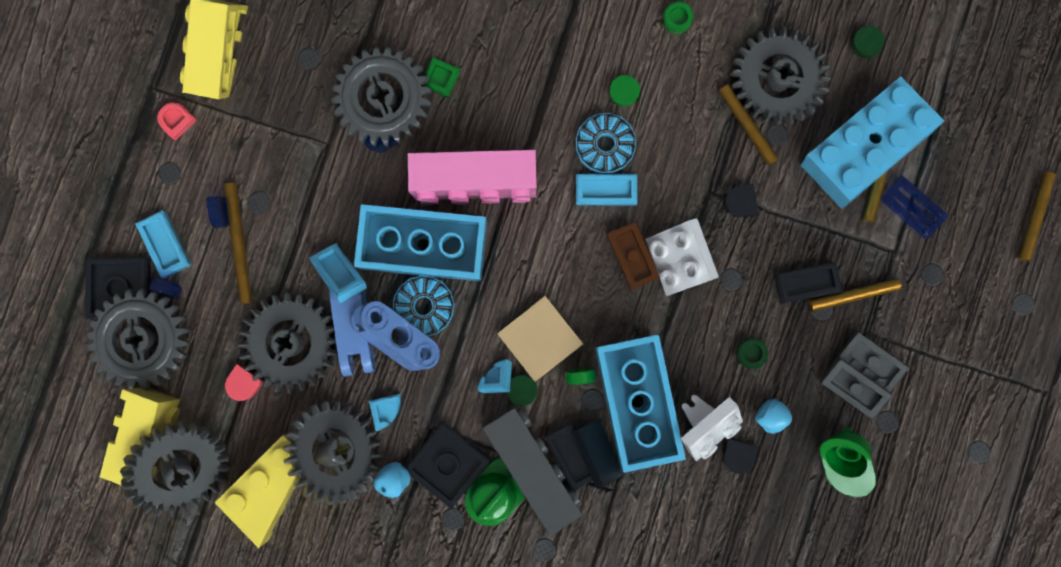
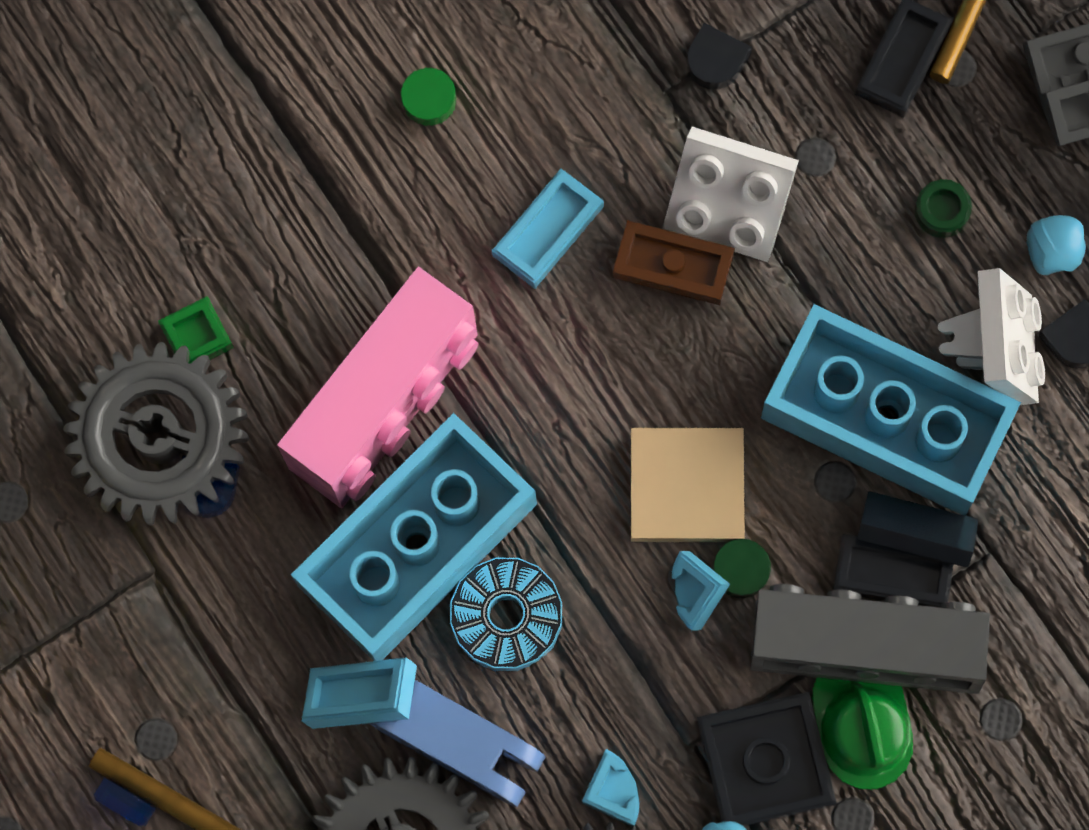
camera: 45 degrees left, 10 degrees down
(375, 324) = (520, 678): medium blue piece -> none
(580, 376) = (786, 467): green tile -> none
(610, 126) = (476, 148): tile -> none

